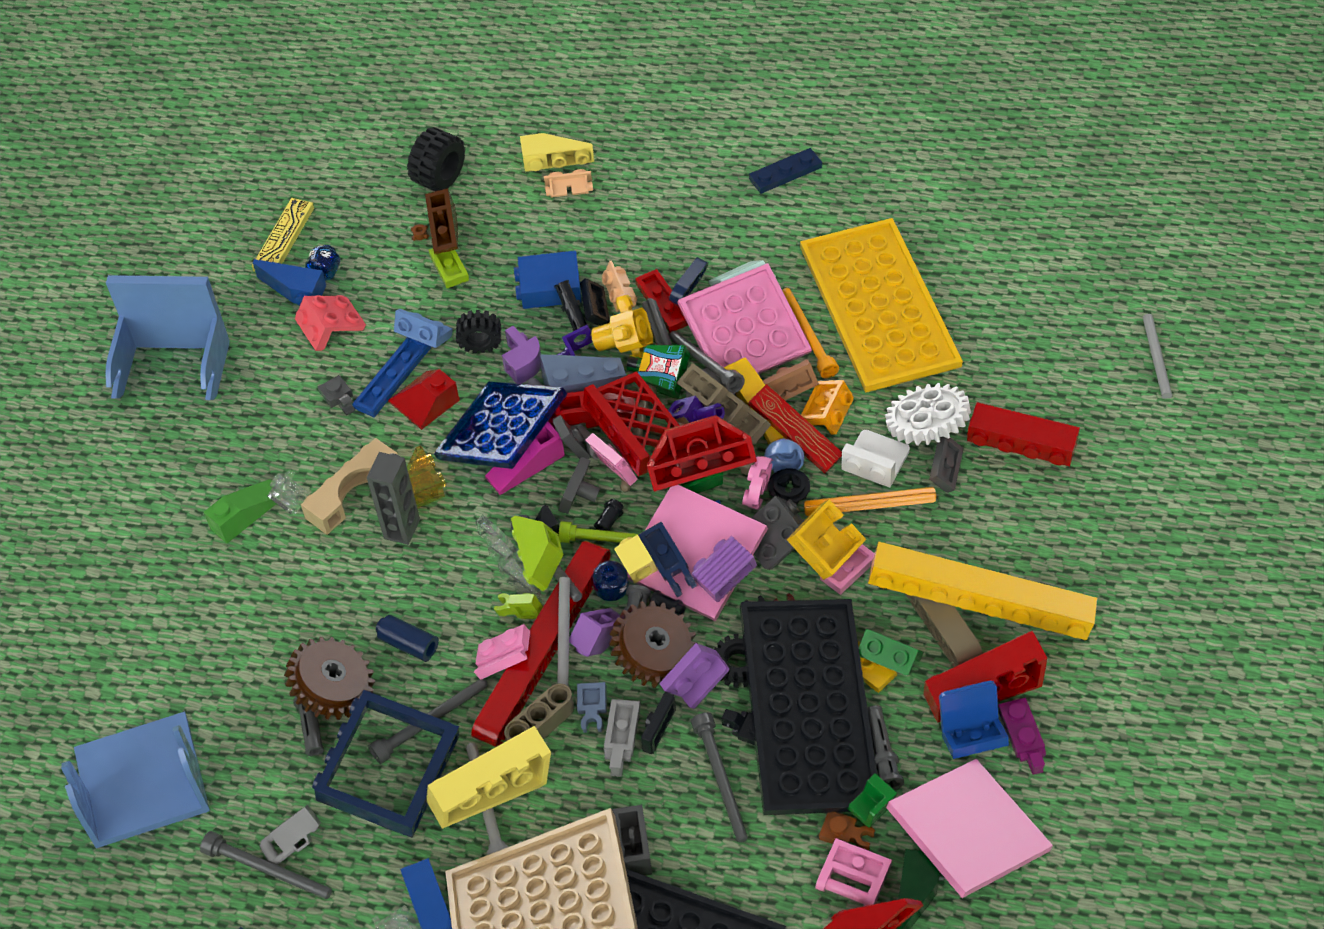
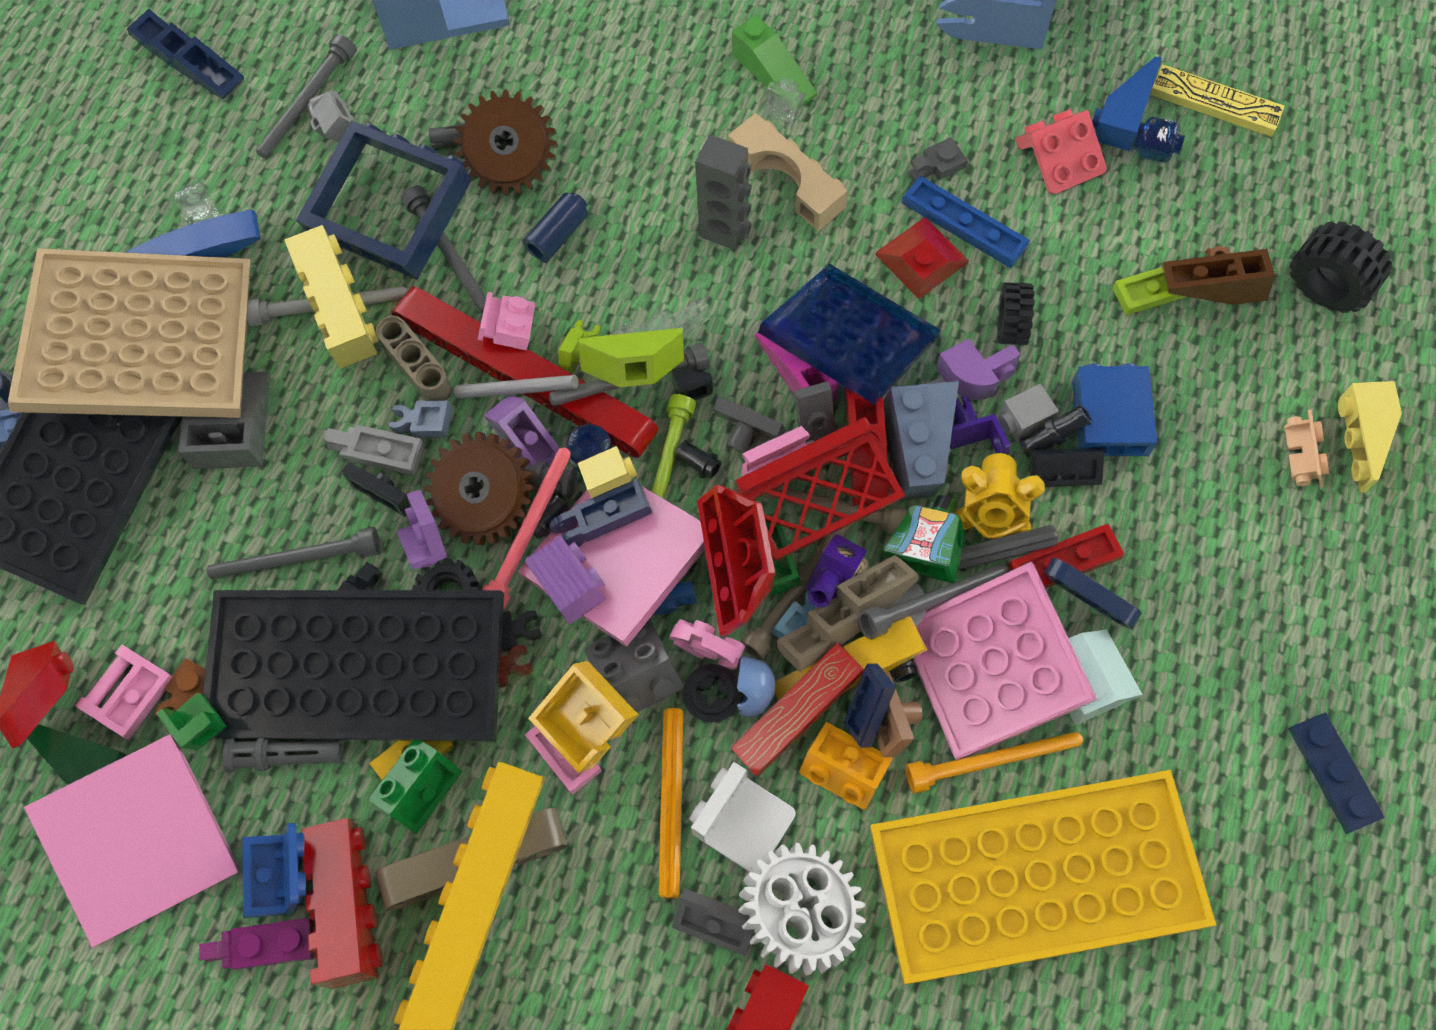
camera: 95 degrees right, 15 degrees up
(421, 329) = (1036, 252): medium blue bracket -> none
(425, 482) = (786, 246): clear yellow slope -> none
(554, 324) = (1027, 412): none -> light grey brick
(617, 284) = (1112, 500): light nougat hinge -> none
(731, 626) = (529, 525): none -> coral piece
(788, 386) = (869, 705): none -> dark blue plate

